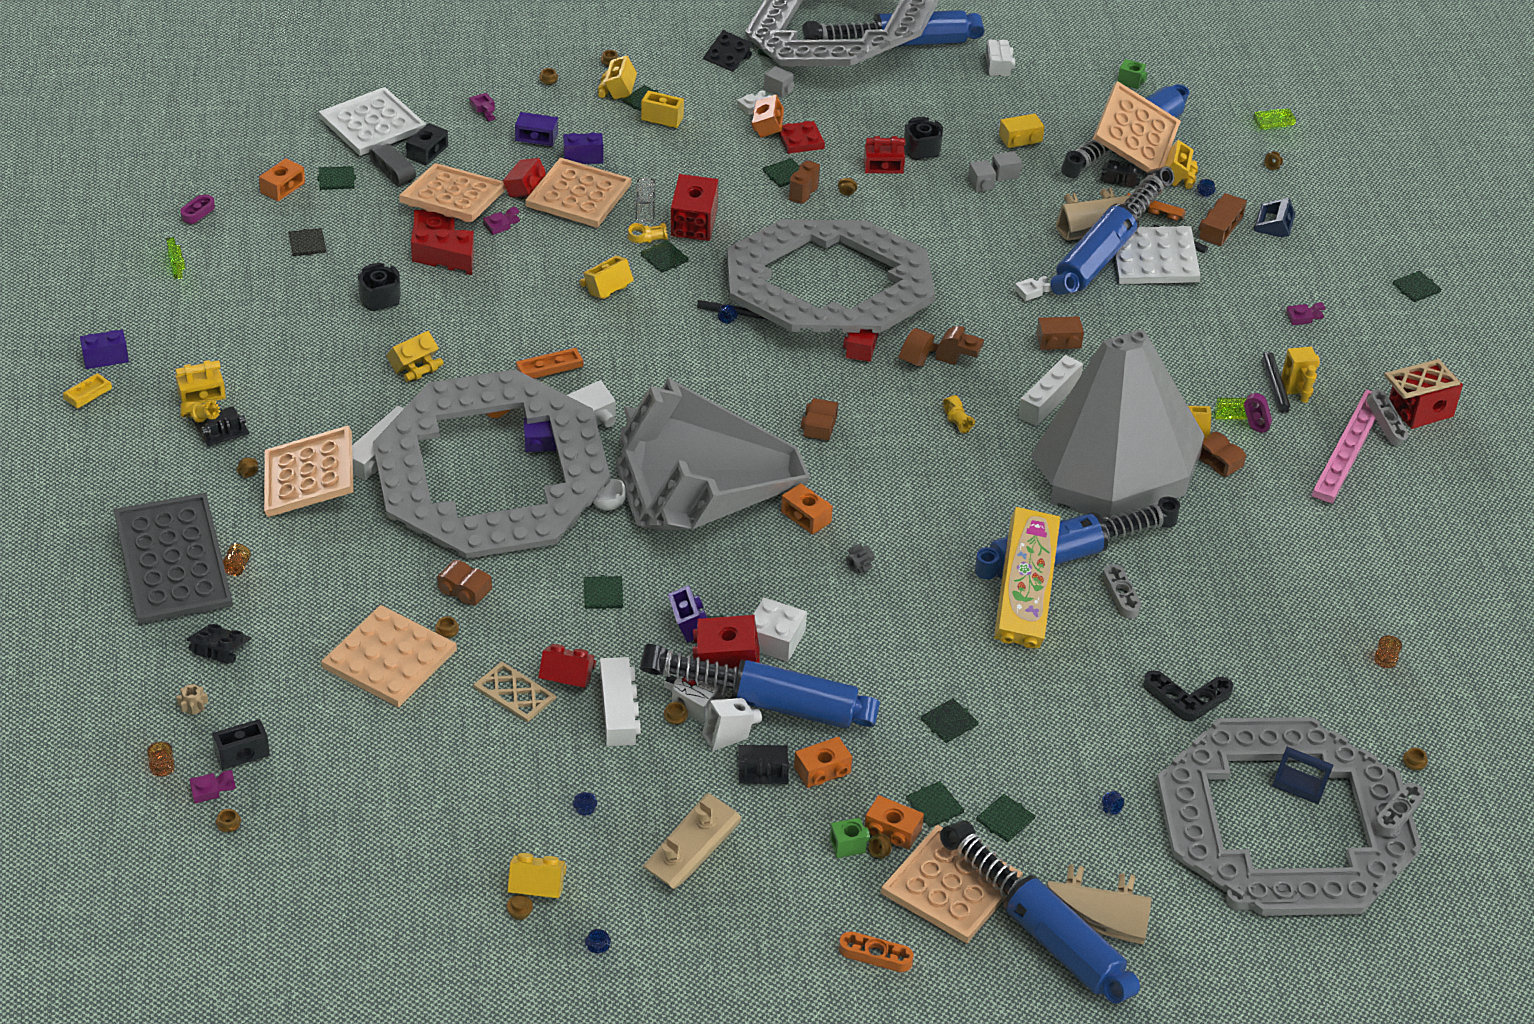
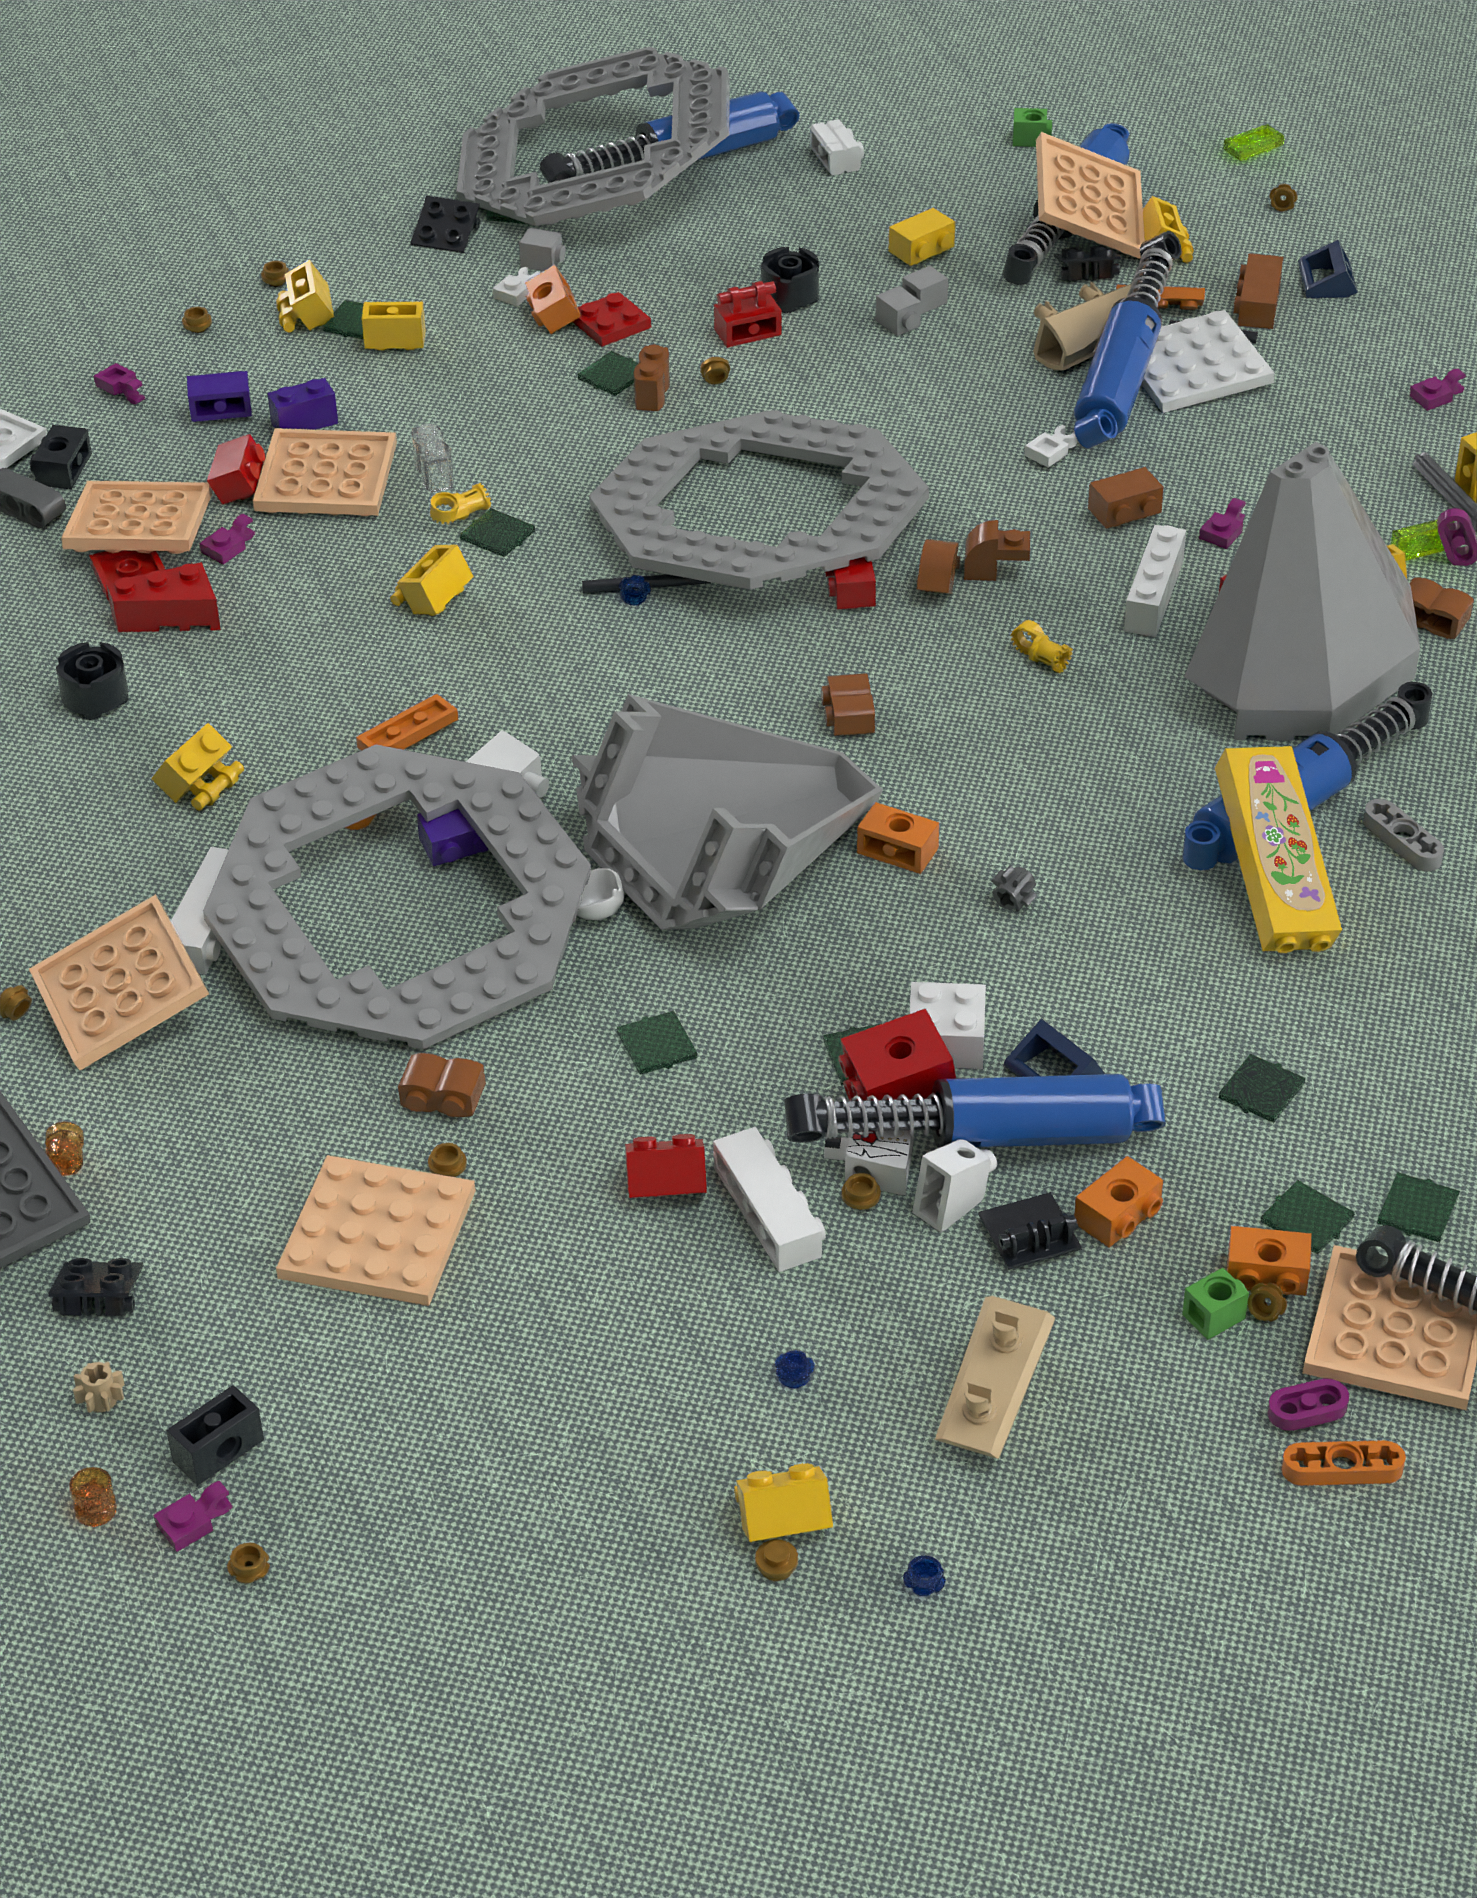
camera: 15 degrees left, 0 degrees up
(537, 705) = (604, 1253): tan window -> none
(686, 610) = (807, 1036): dark purple brick -> none
(694, 207) = (515, 449): red brick -> none
(826, 654) = (1041, 1038): none -> dark blue tile
(870, 911) = (1305, 1404): none -> magenta plate
(1206, 187) = (1213, 254): clear blue plate -> none

